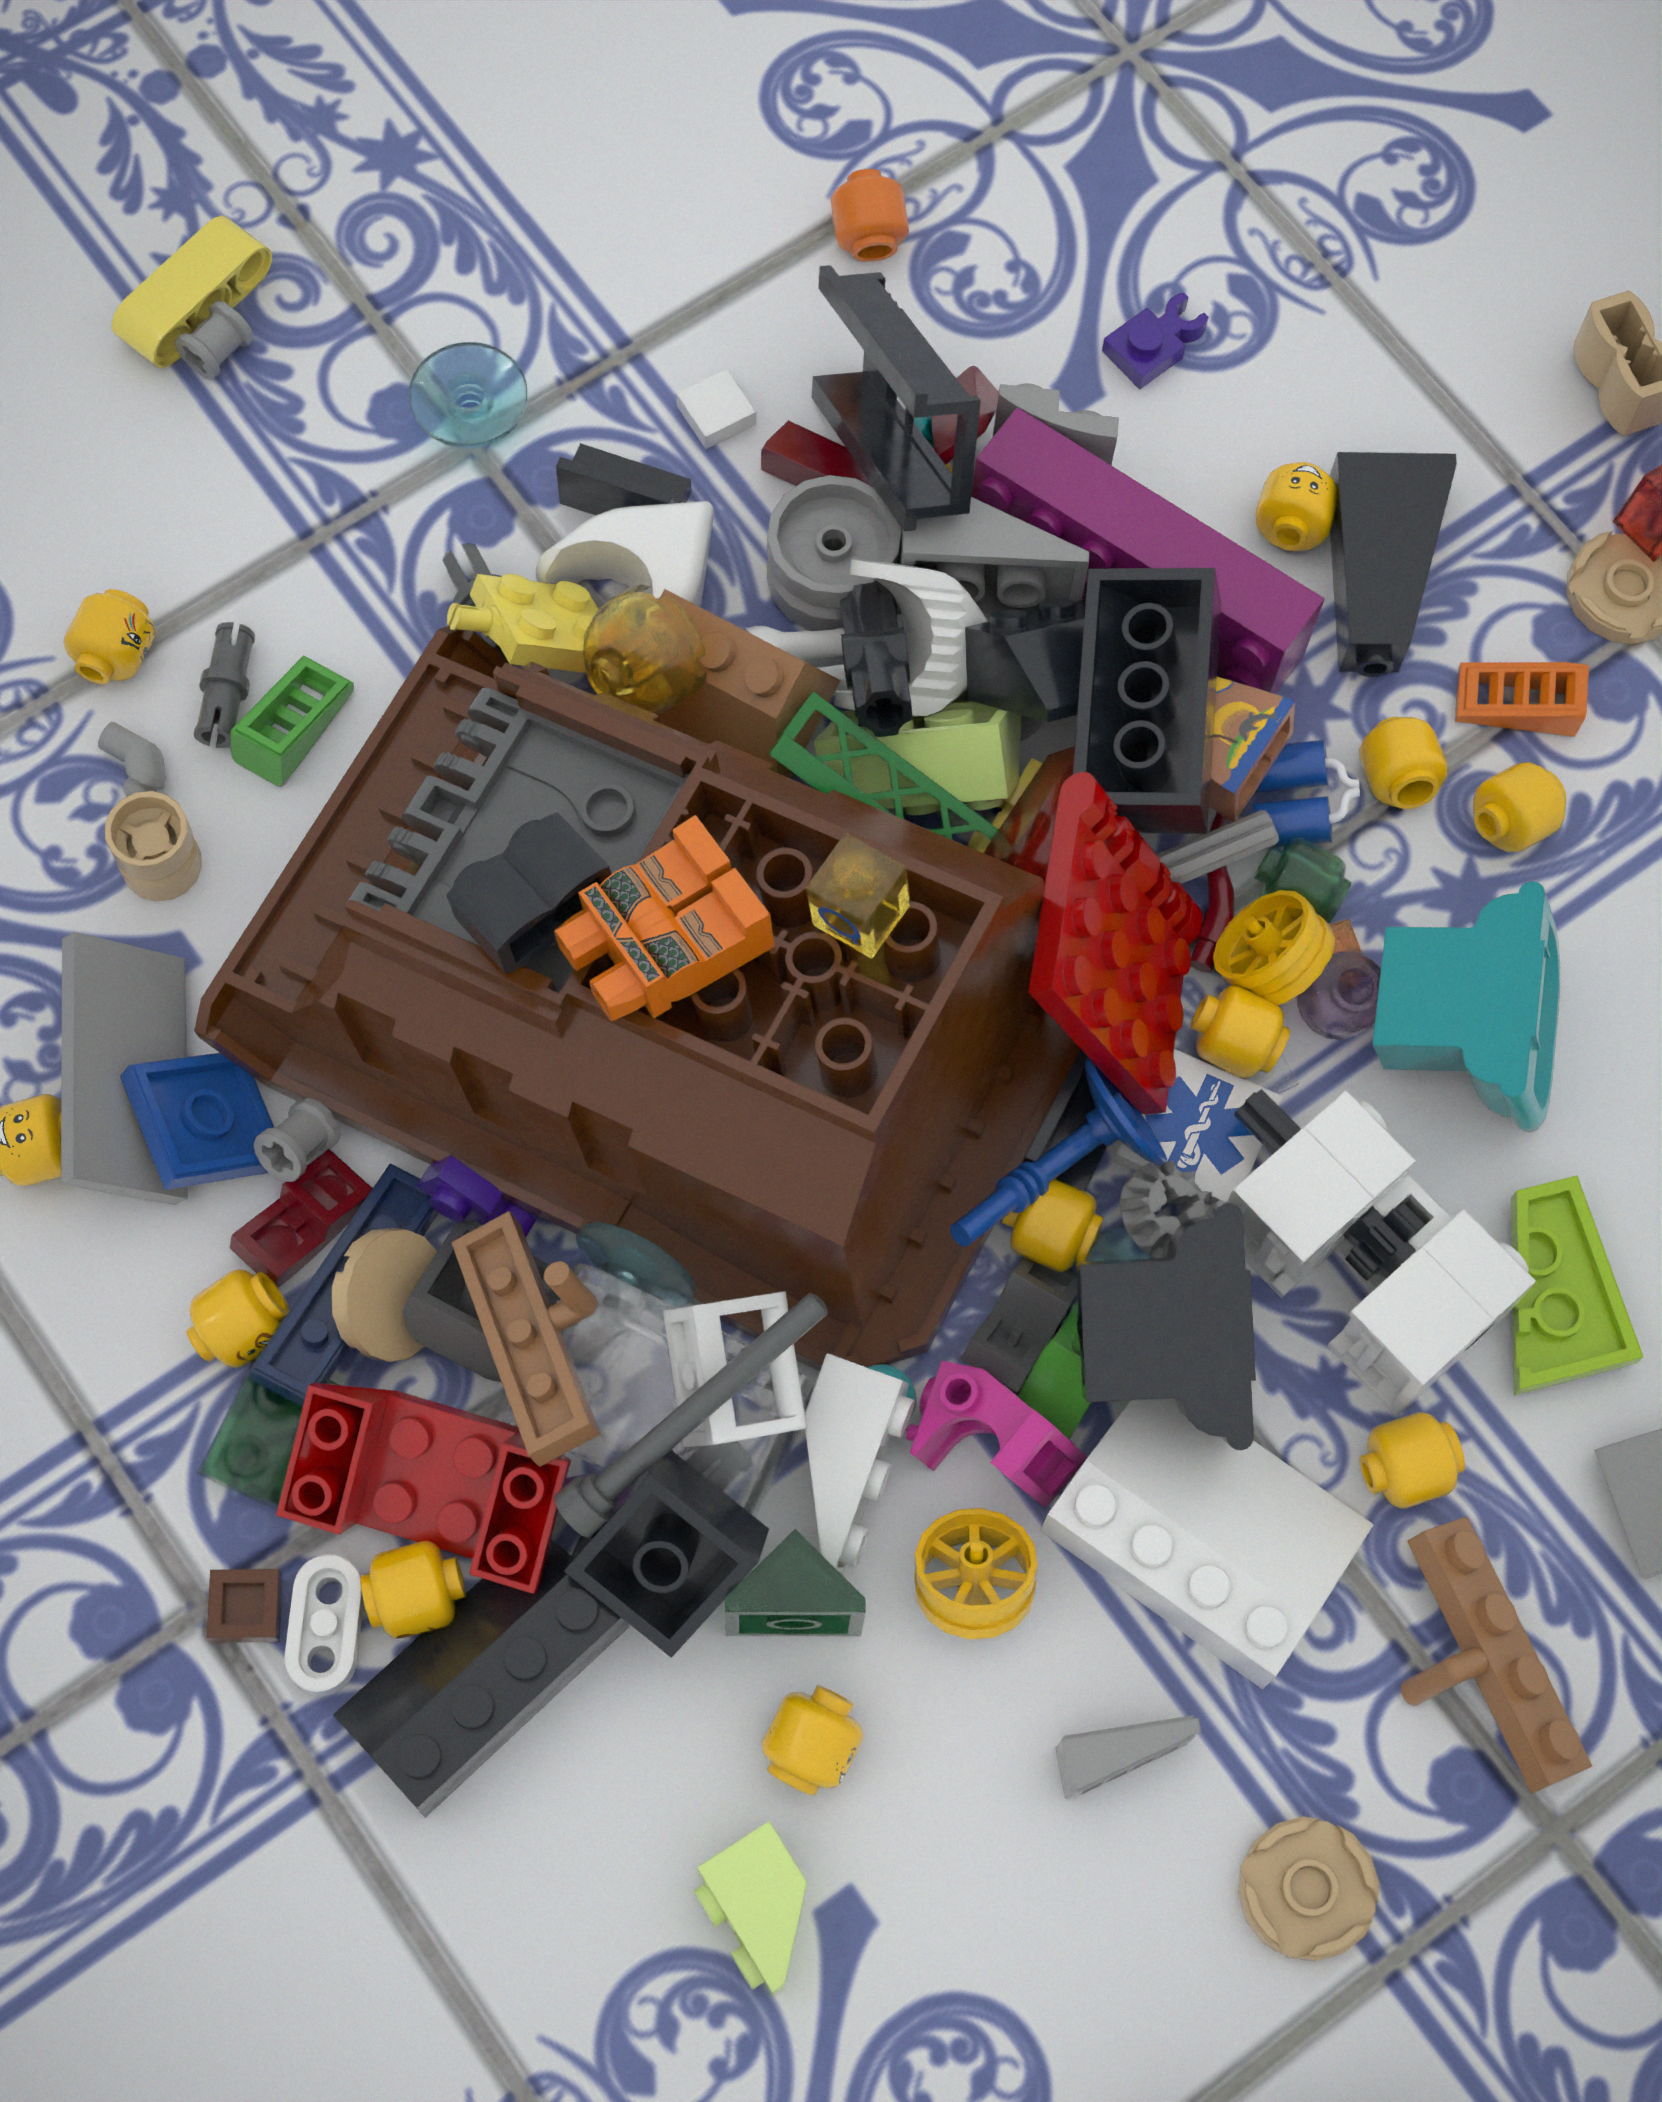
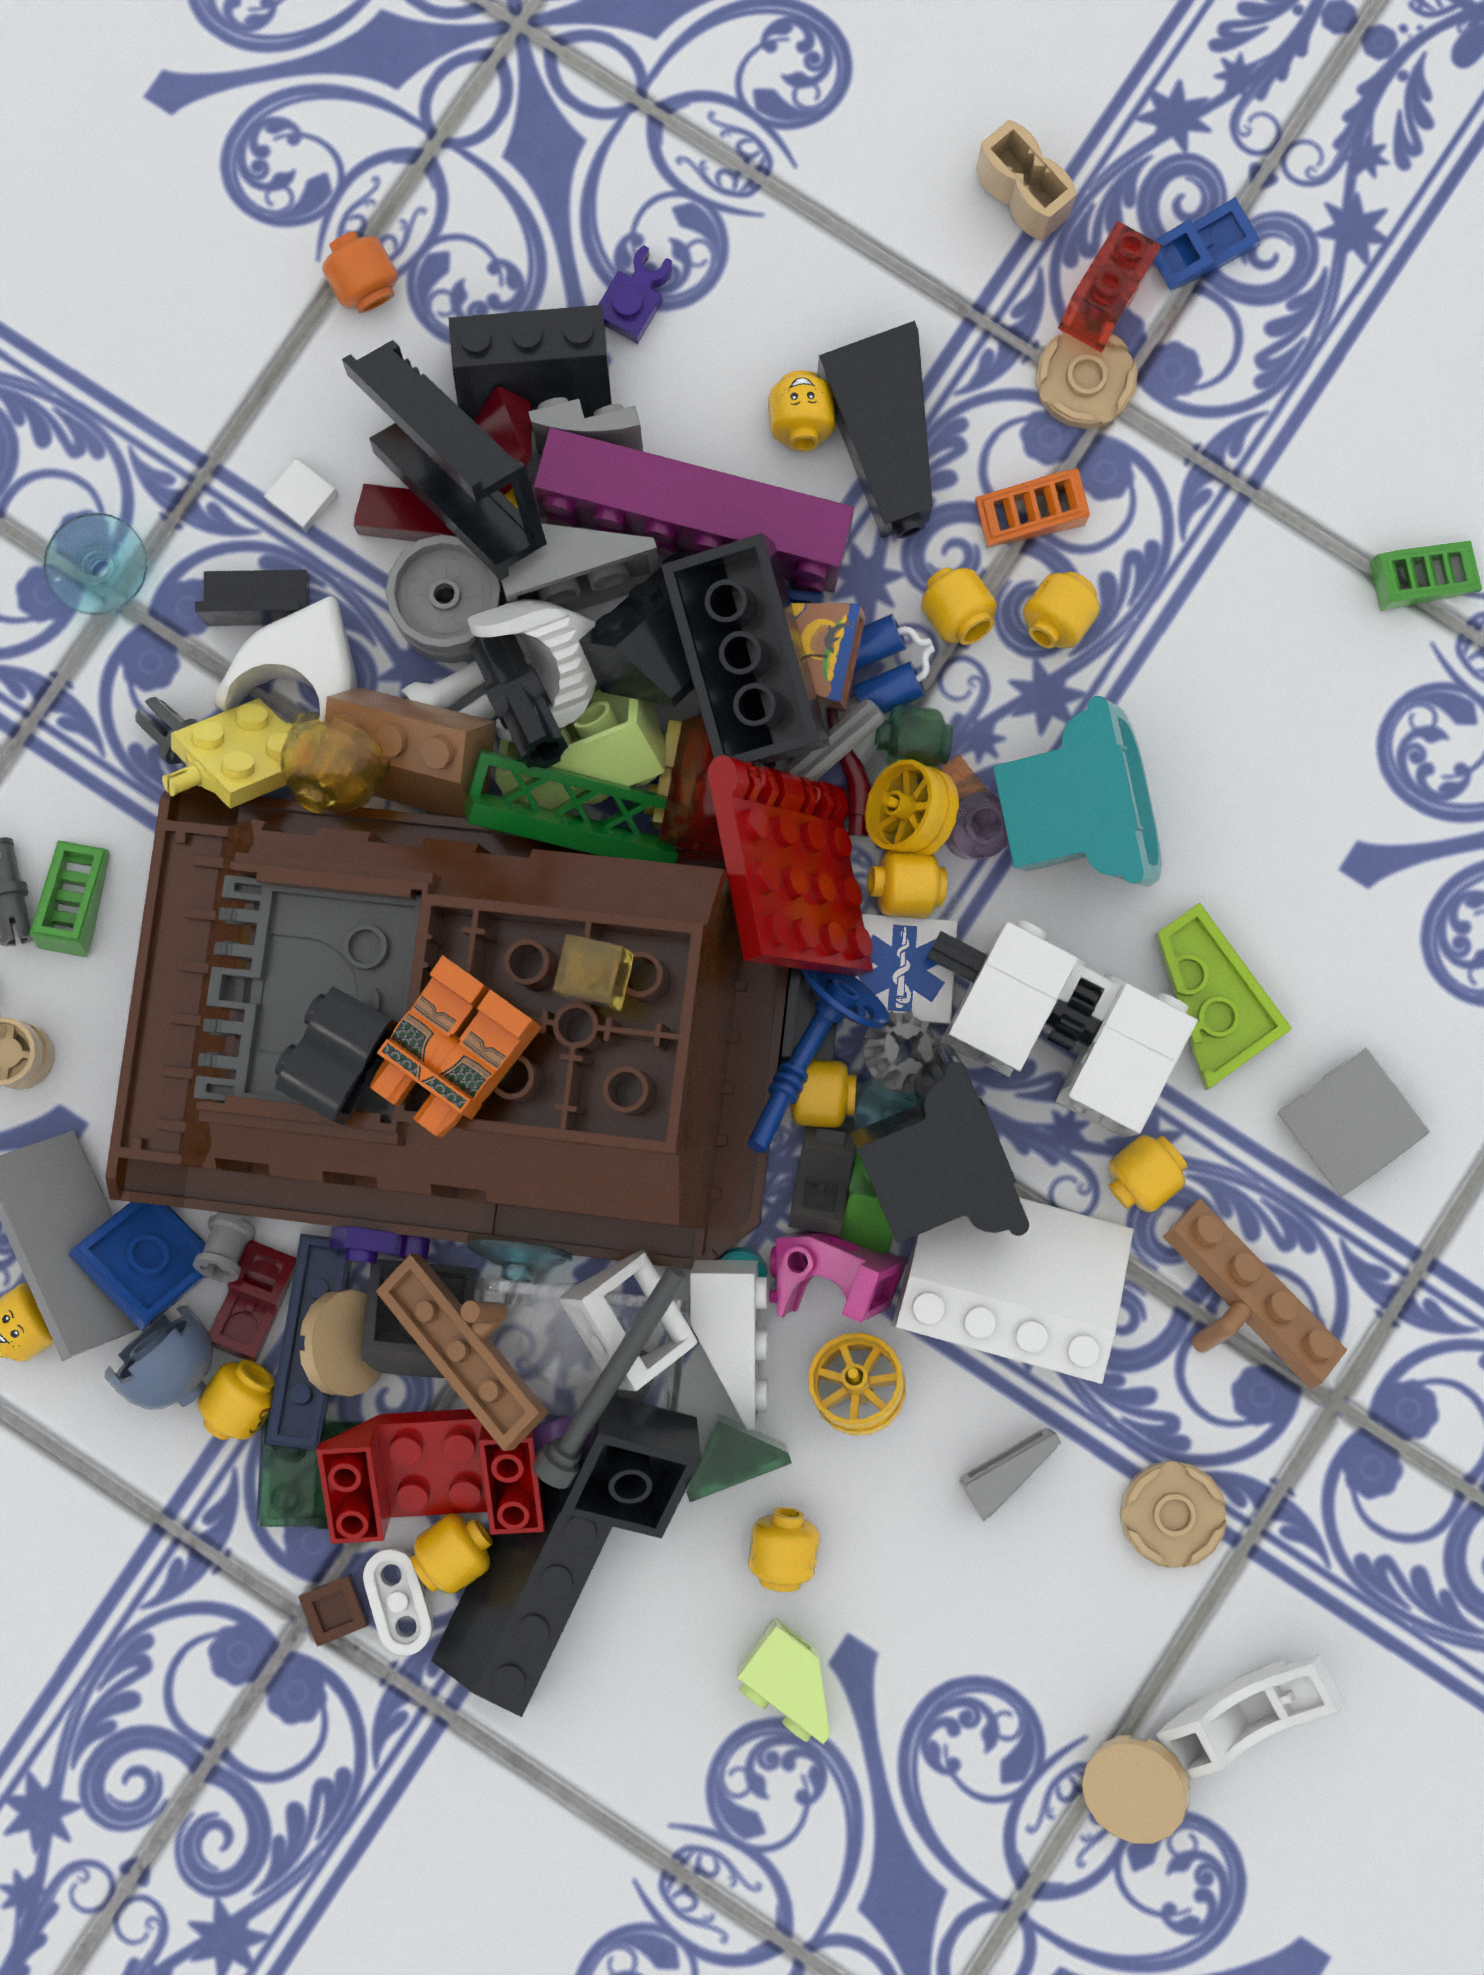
camera: 20 degrees left, 15 degrees up
(174, 1243) = (165, 1363): none -> sand blue cylinder
(1024, 343) = (532, 356): none -> black slope

